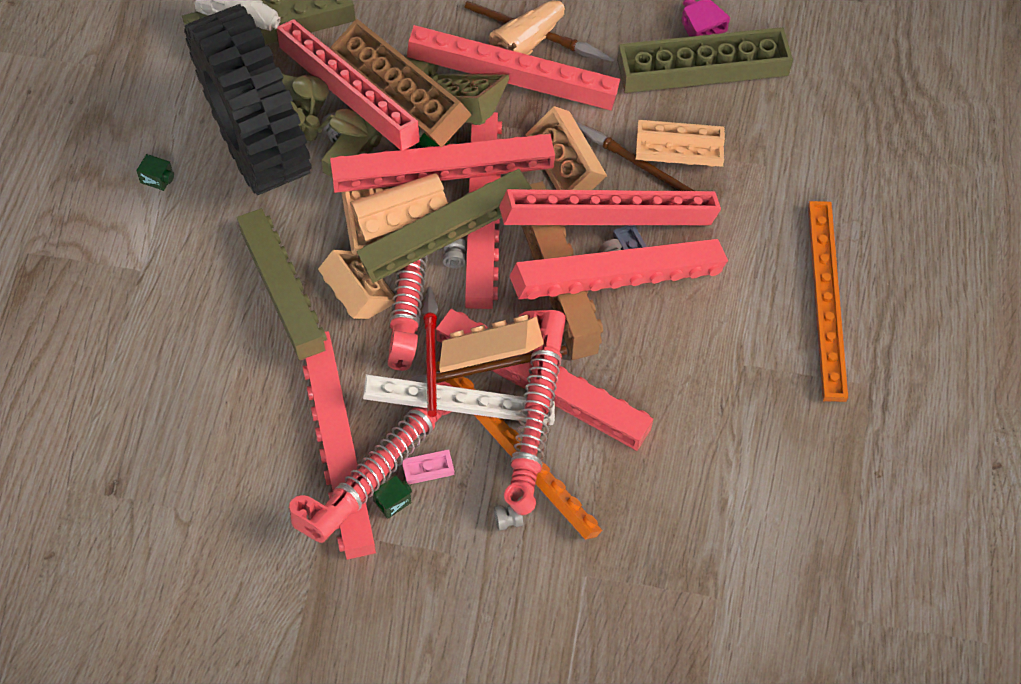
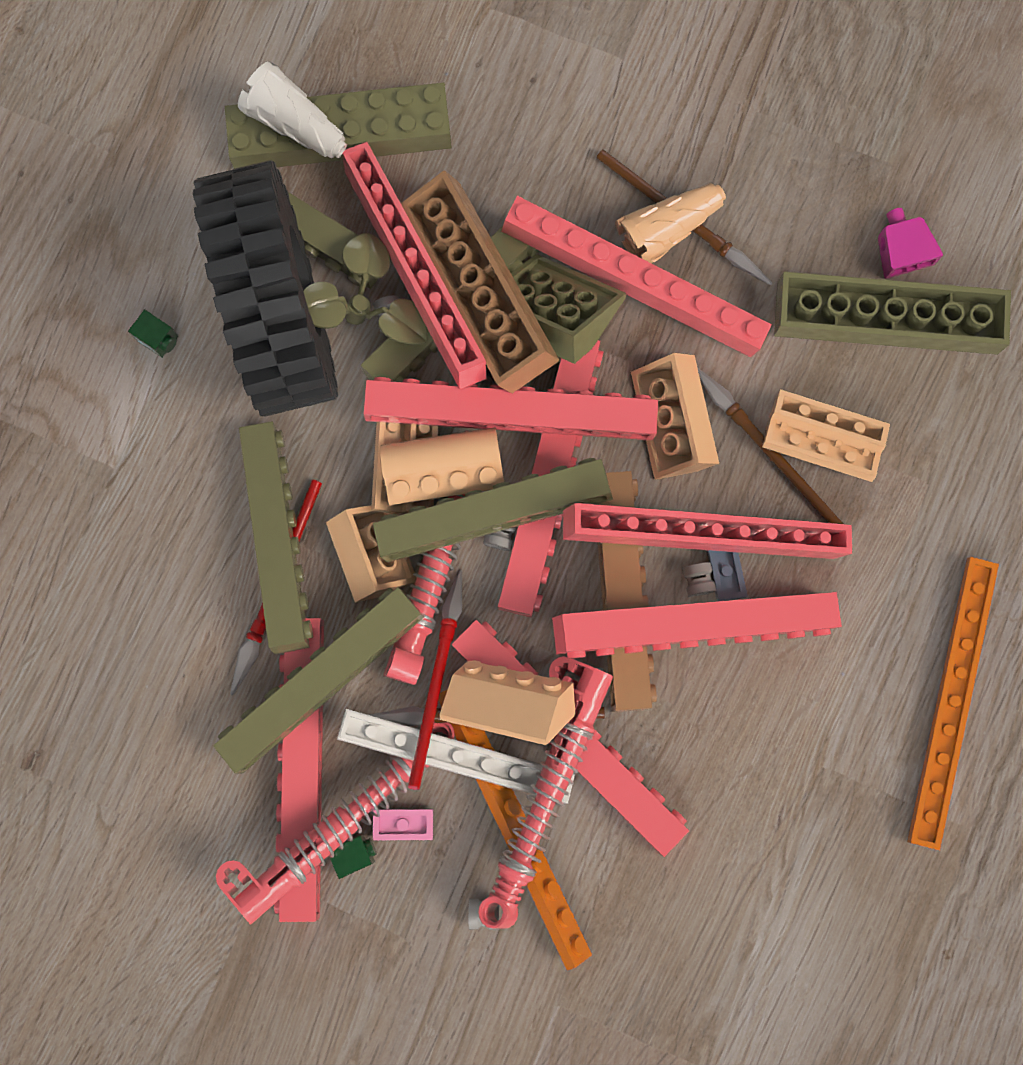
camera: 15 degrees right, 20 degrees up
(276, 371) = (250, 648): none -> piece
(337, 368) = (317, 681): none -> olive brick

